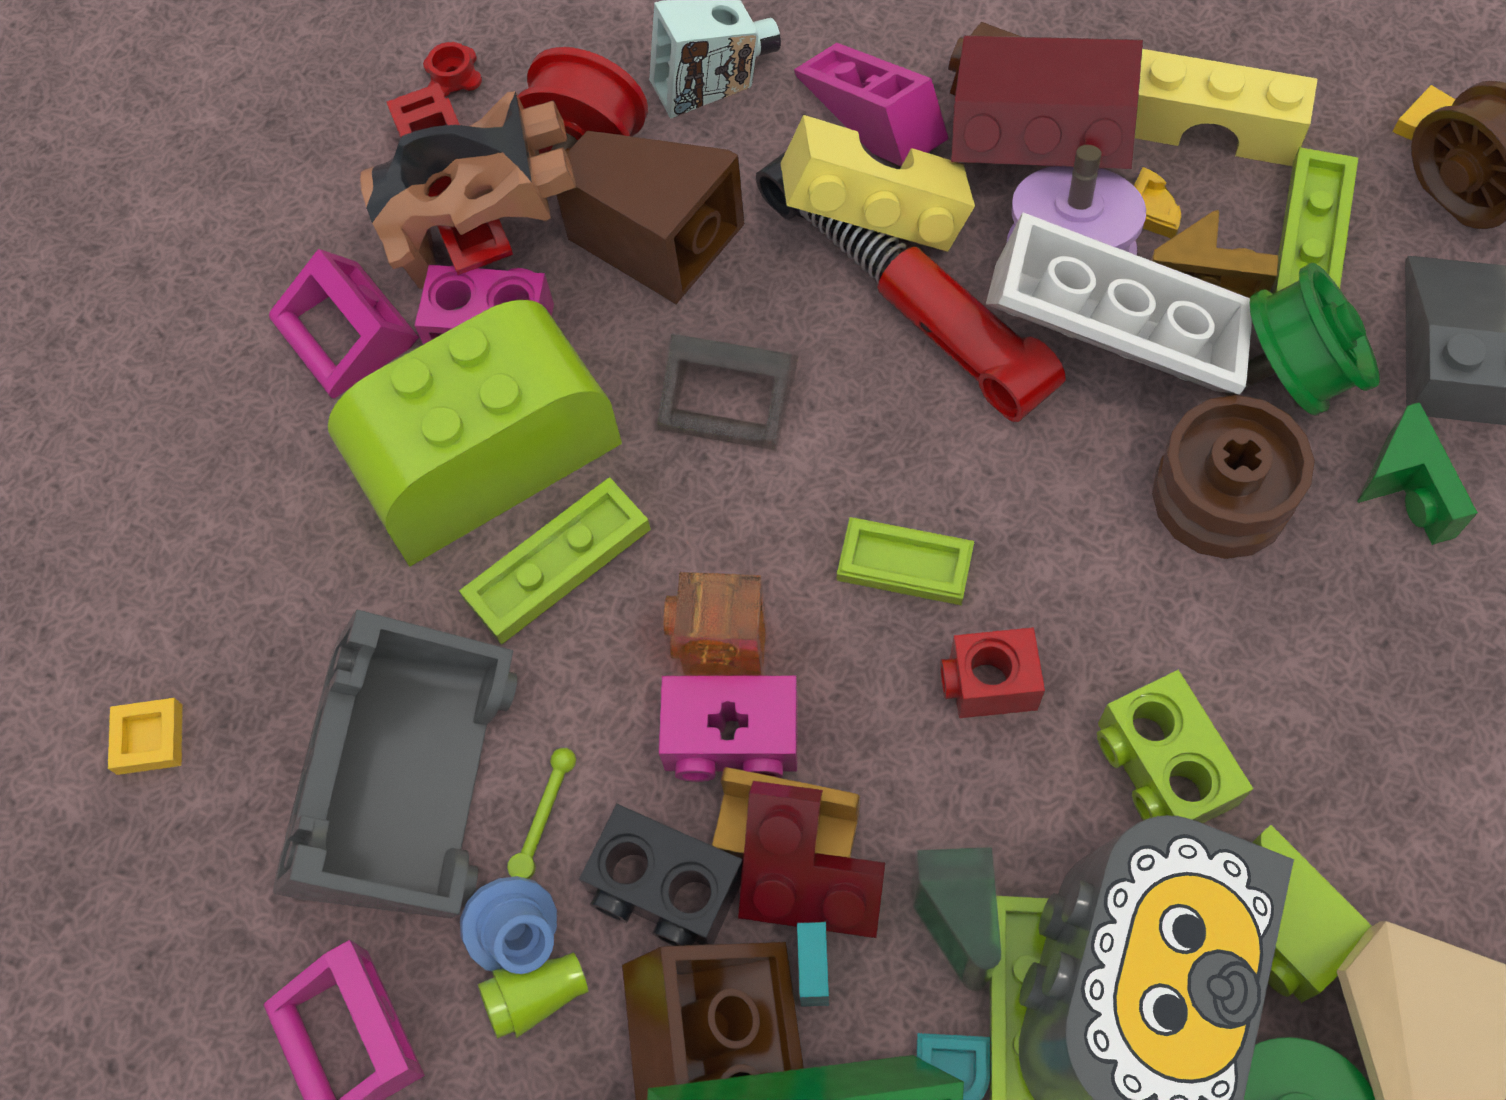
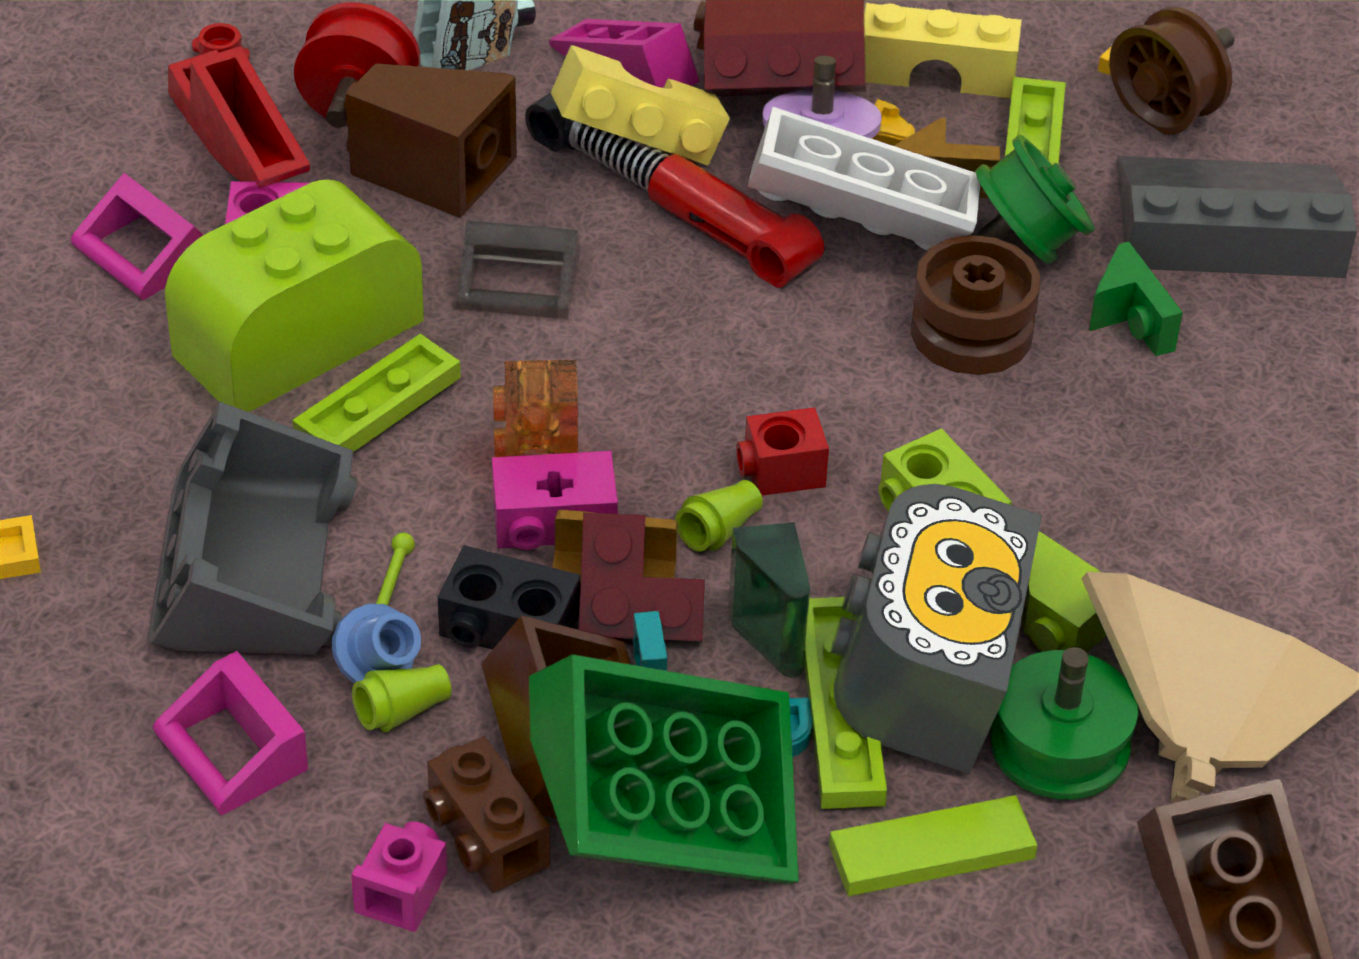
camera: 15 degrees left, 20 degrees down
(492, 175) = (293, 89): nougat hips -> none
(905, 561) = (696, 387): lime tile -> none
(910, 756) = (709, 517): none -> lime cone

